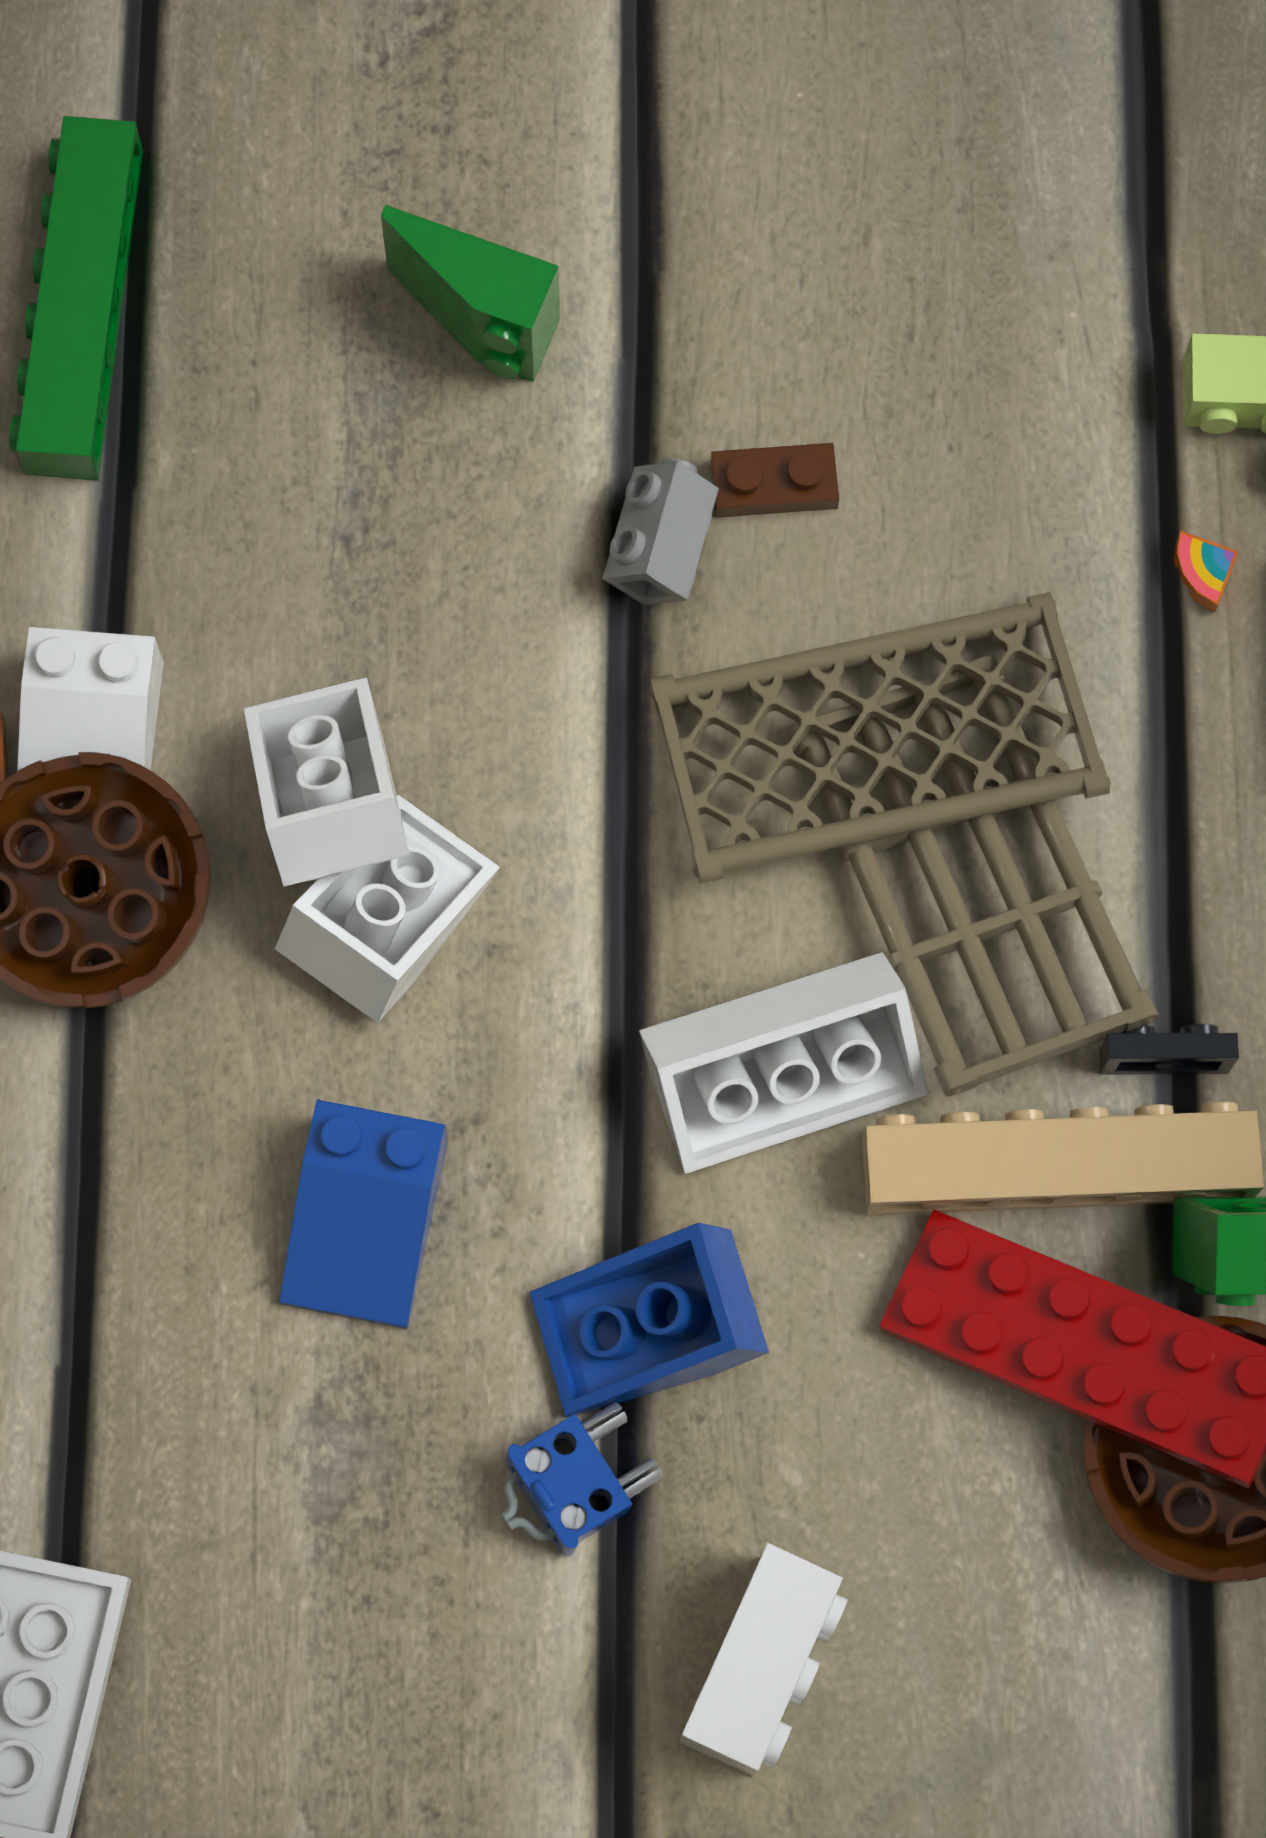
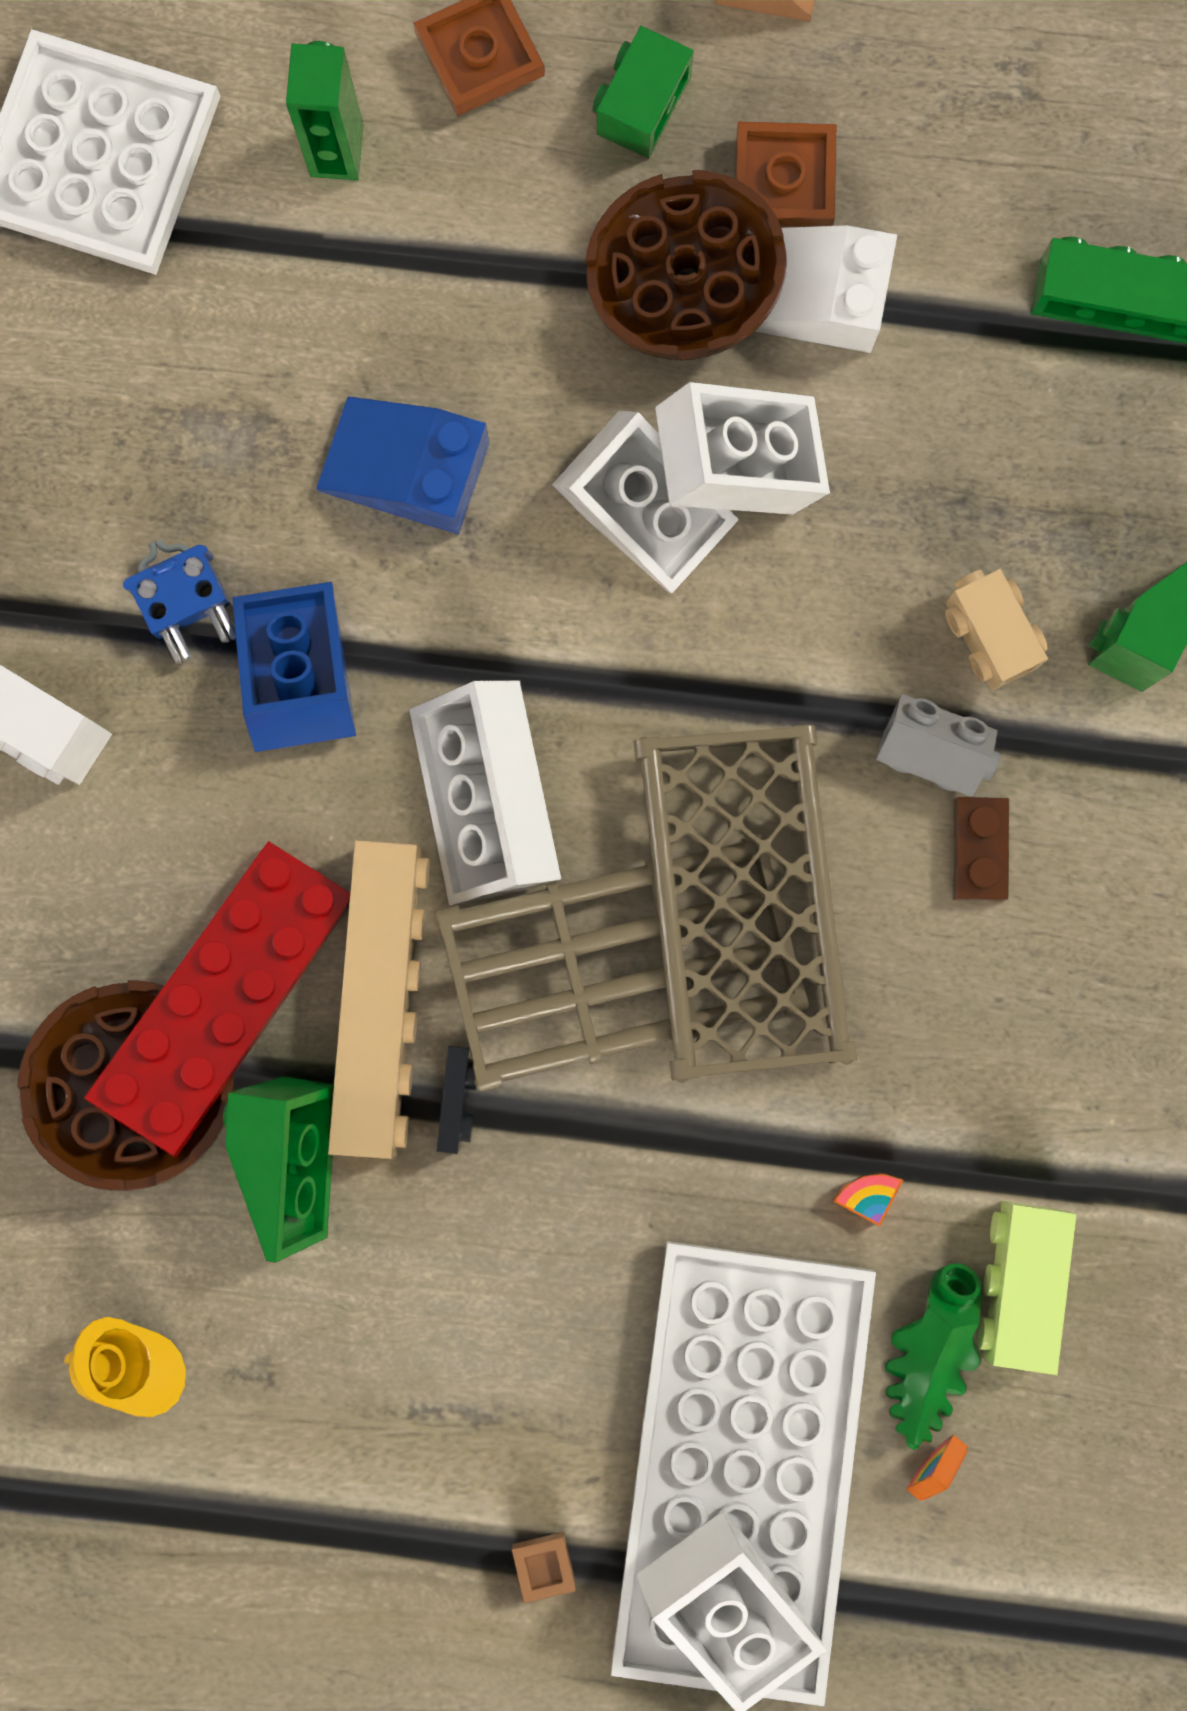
camera: 100 degrees right, 10 degrees up
(510, 479) = (995, 628): none -> tan brick

